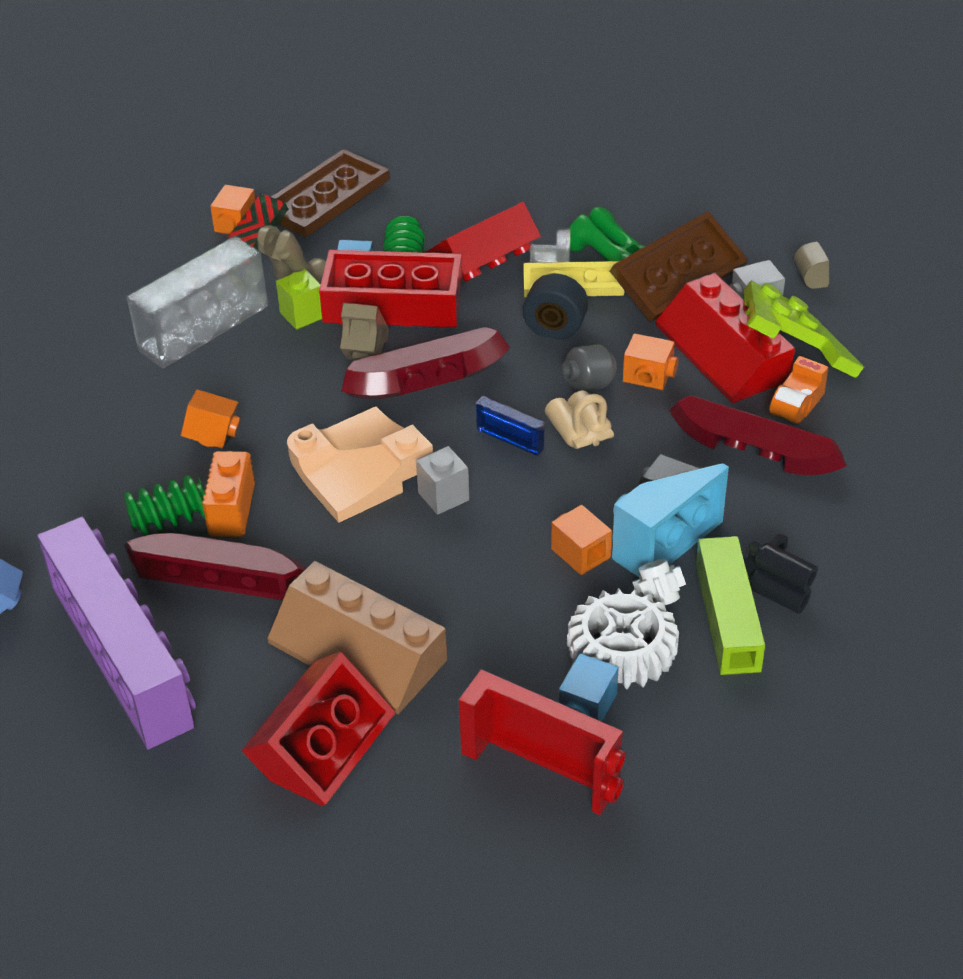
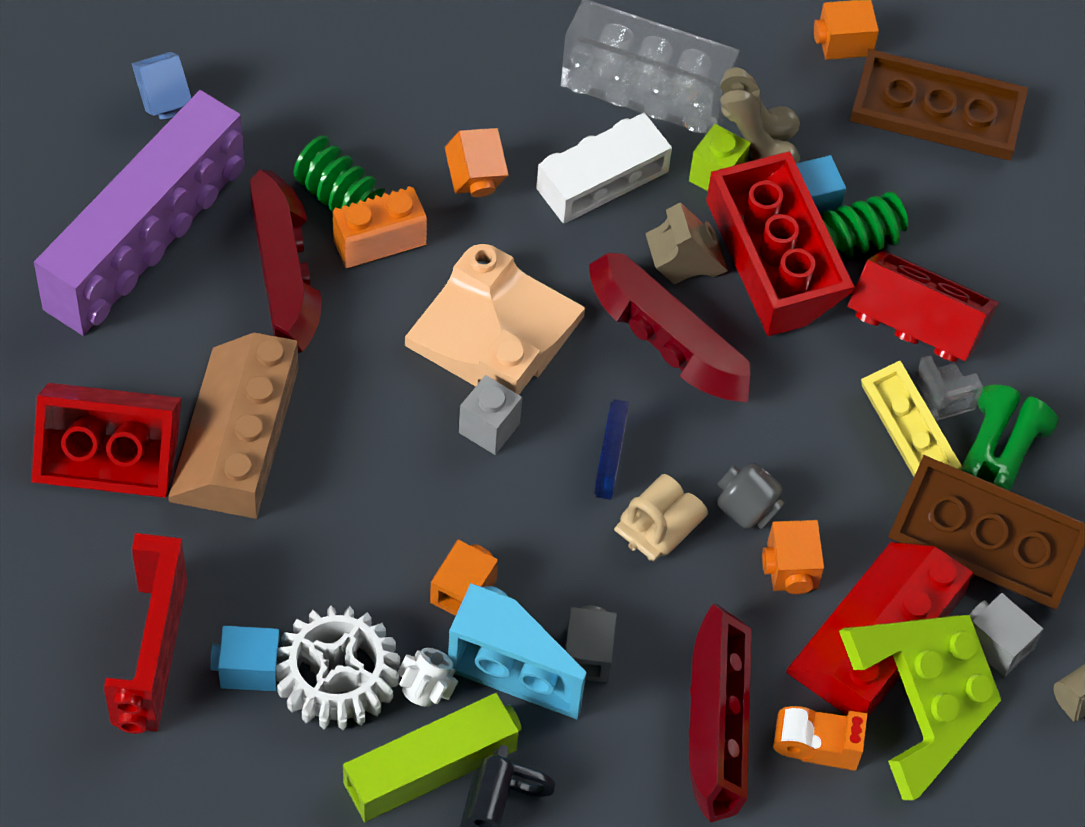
camera: 60 degrees right, 15 degrees up
(259, 360) = (603, 167): none -> white brick
(263, 212) = (831, 63): tile -> none
(555, 306) = (836, 422): black wheel -> none

